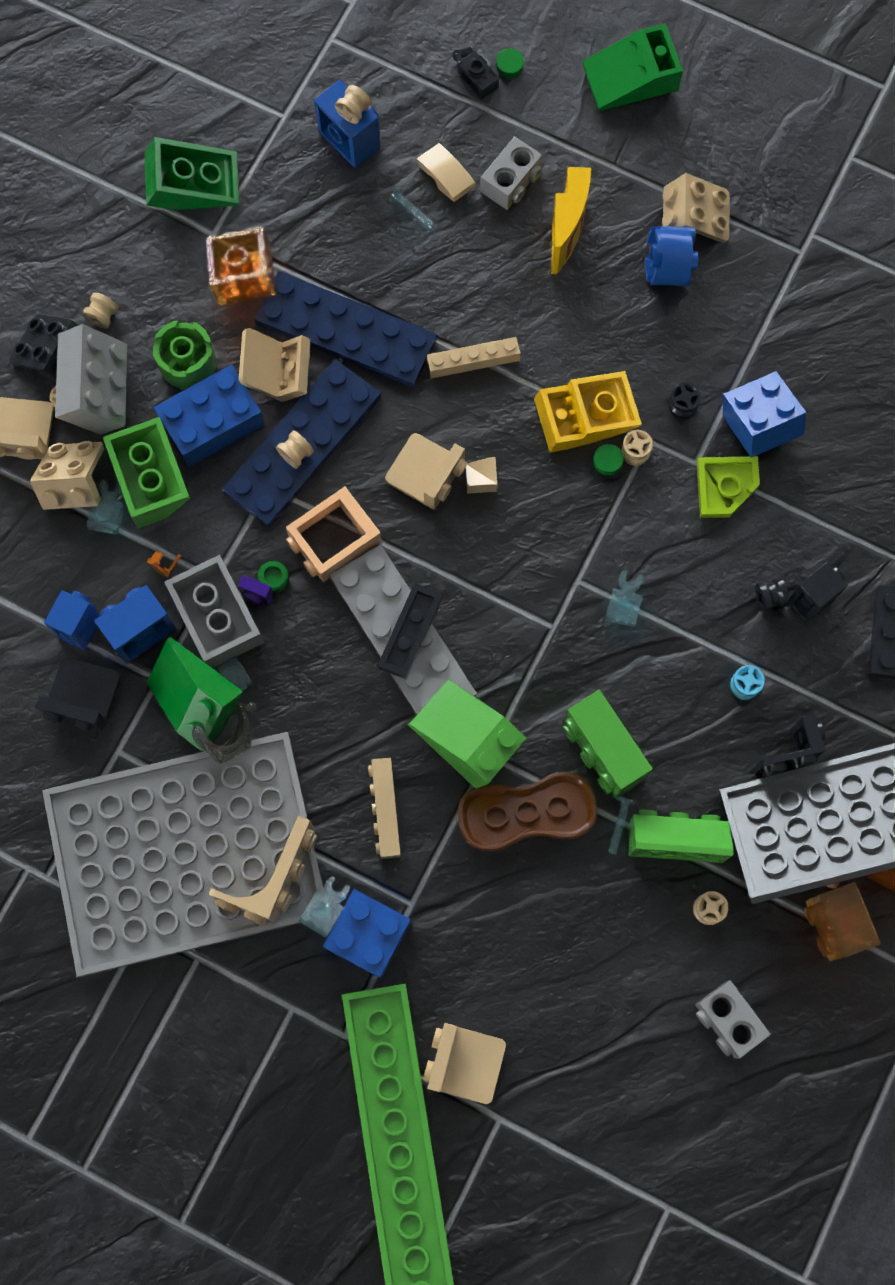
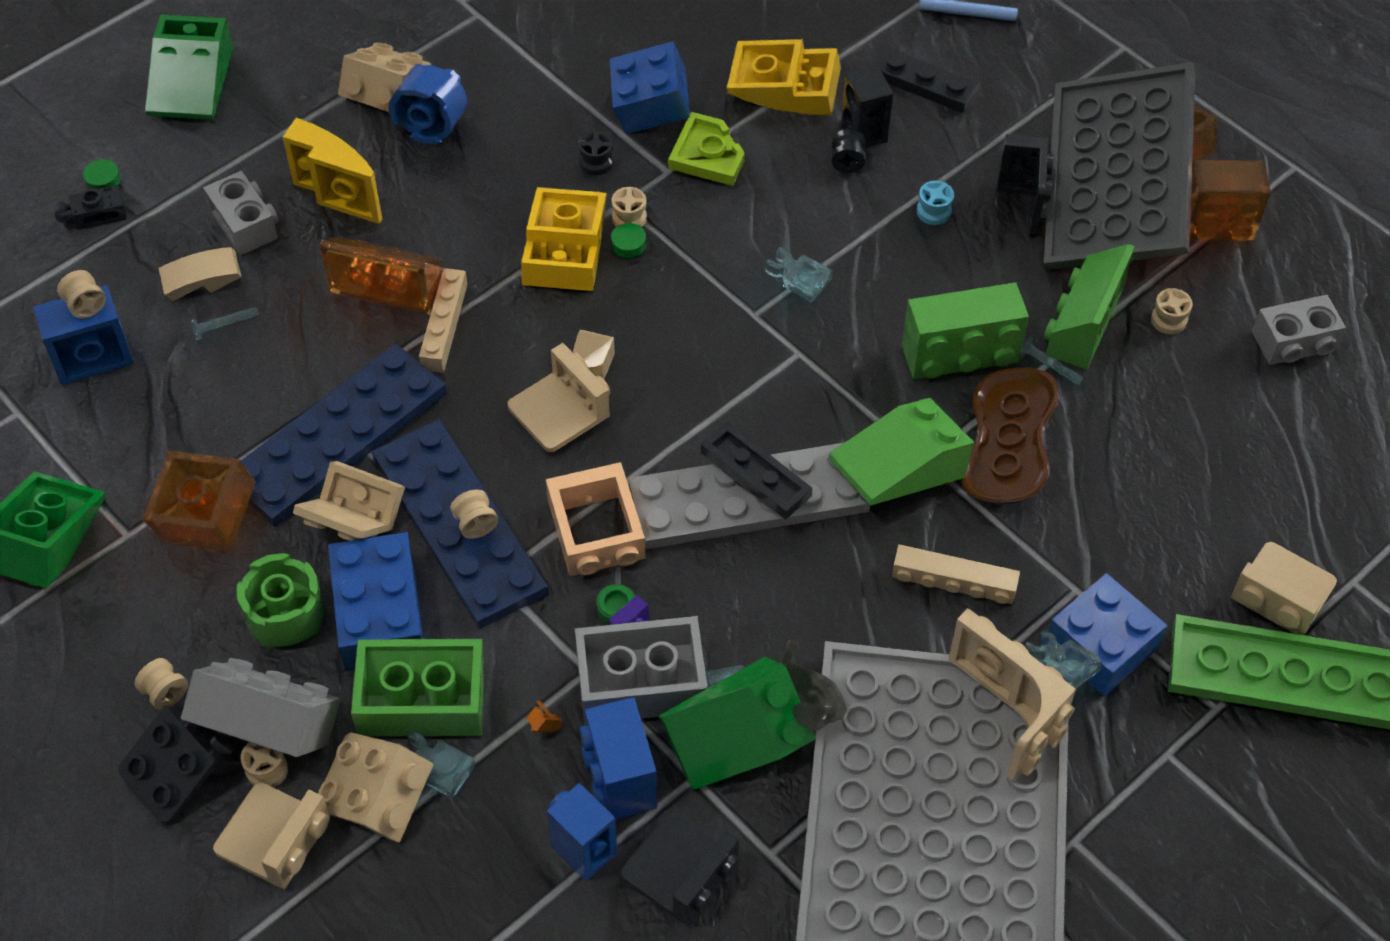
camera: 70 degrees left, 20 degrees down
(494, 293) = (381, 274): none -> clear orange slope
(835, 516) = (785, 76): none -> yellow slope

